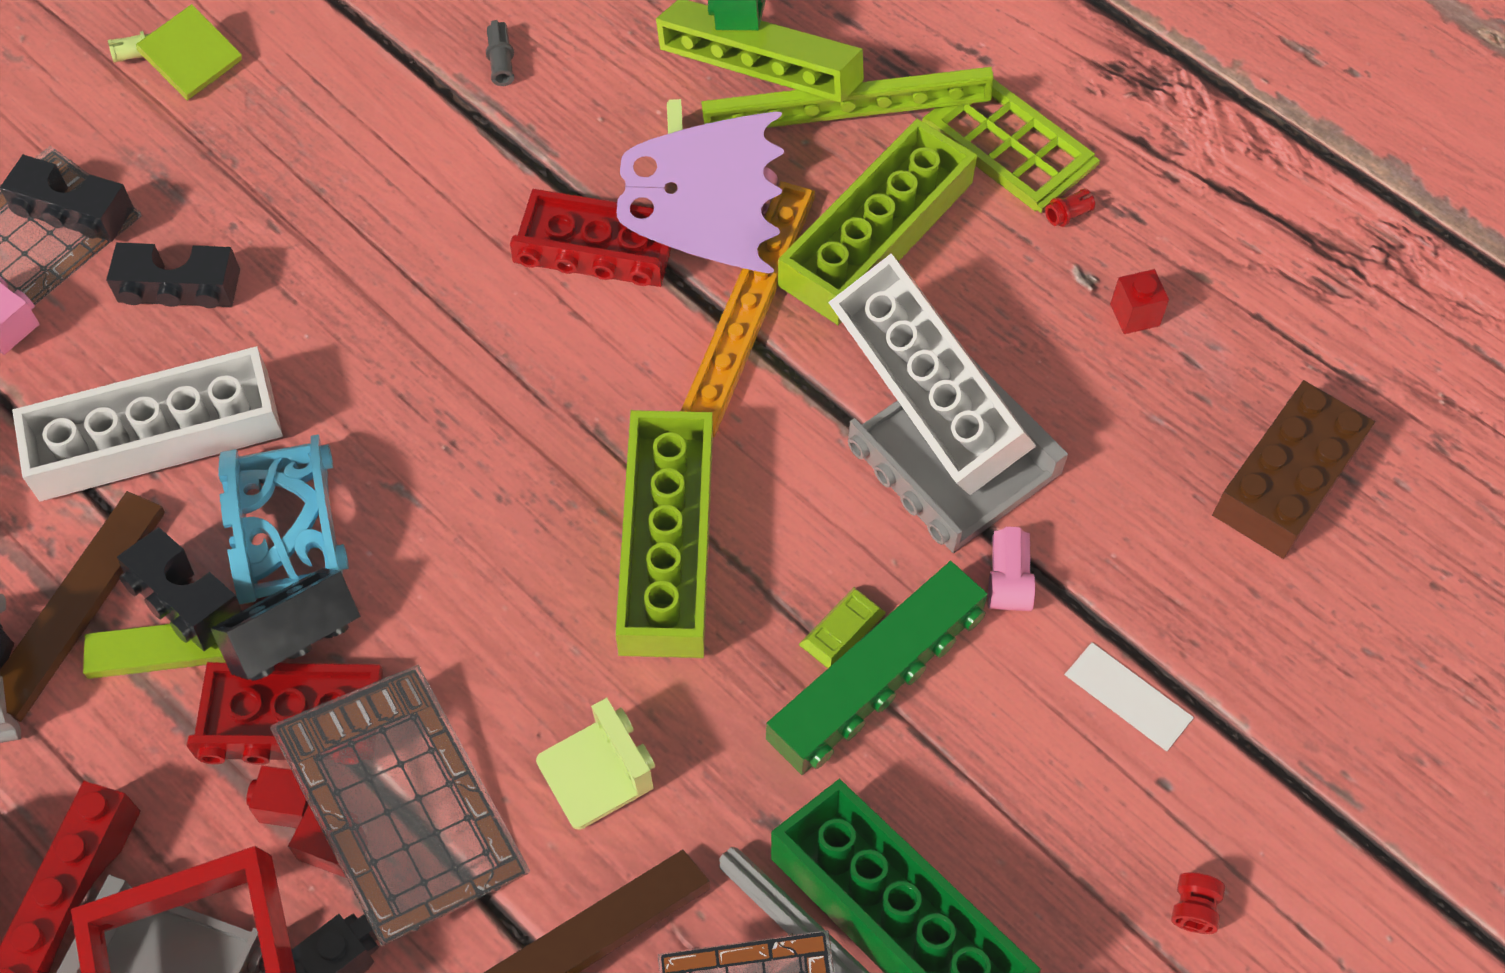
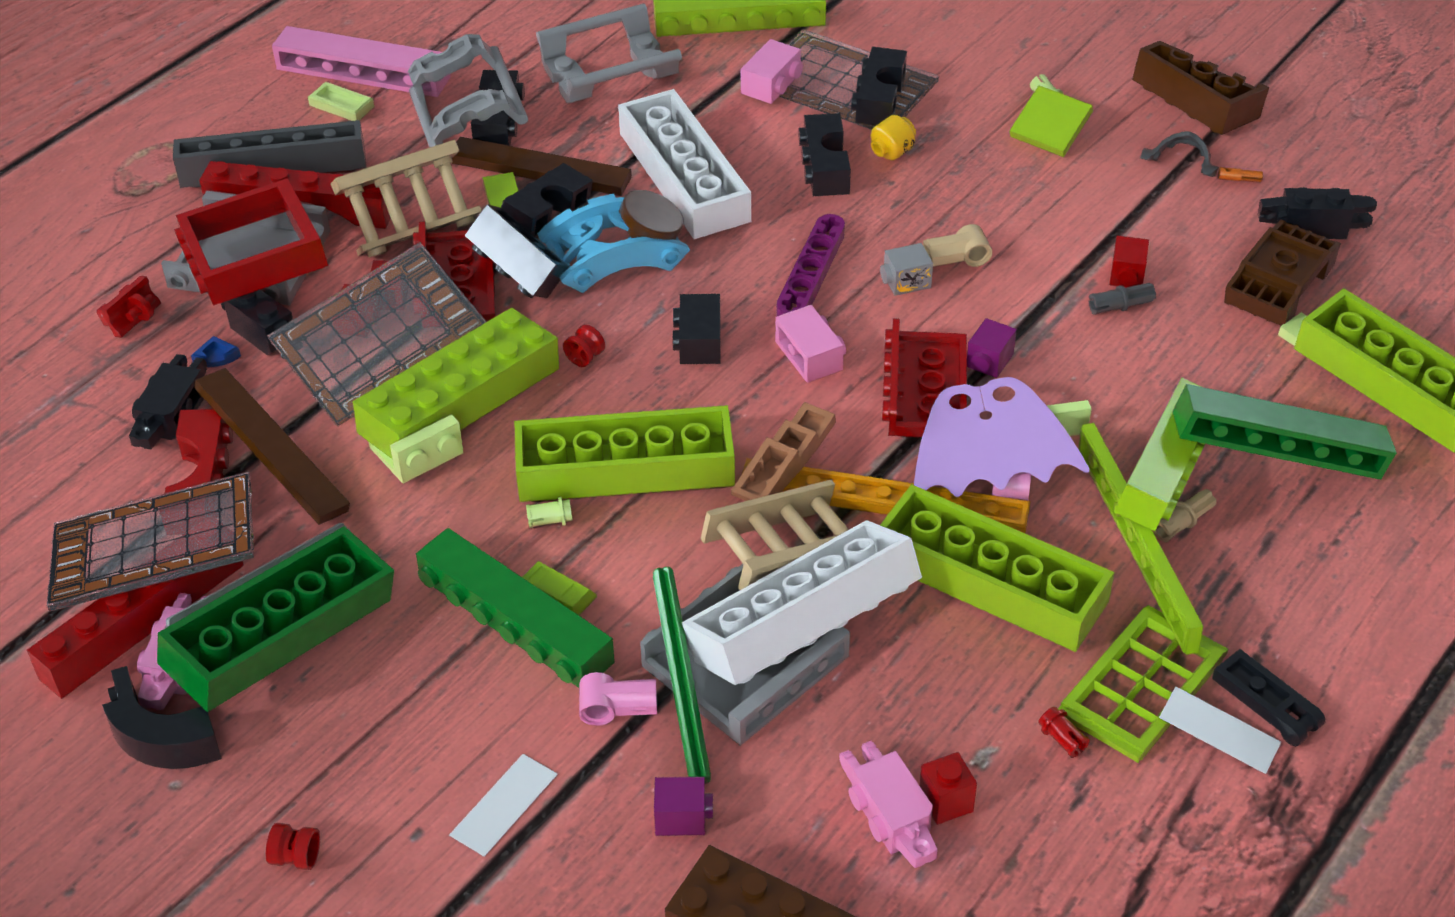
camera: 85 degrees right, 15 degrees down
(98, 780) = (411, 167): none -> tan fence
(167, 203) = (893, 137): none -> yellow head
(272, 458) = (650, 215): none -> tile
(382, 335) = (809, 257): none -> magenta beam
(383, 170) = (966, 245): none -> tan piece
(409, 225) = (907, 269): none -> light grey brick
(451, 33) = (1129, 261): none -> red brick
(459, 441) = (698, 329): none -> black brick
(461, 567) = (584, 345): none -> red wheel
(510, 334) = (809, 343): none -> bright pink brick
(516, 710) = (459, 380): none -> lime brick
(556, 169) = (991, 347): none -> magenta brick
(696, 377) = (785, 454): none -> nougat slope
(732, 623) = (549, 513): none -> yellowish green pin
(845, 358) = (761, 515): none -> tan fence
(998, 501) = (681, 674): none -> green axle
(1038, 56) = (1269, 697): none -> black plate
(1069, 98) = (1220, 730): none -> white sticker
(1150, 349) = (892, 802): none -> bright pink hinge
(1152, 524) = (681, 806): none -> magenta brick

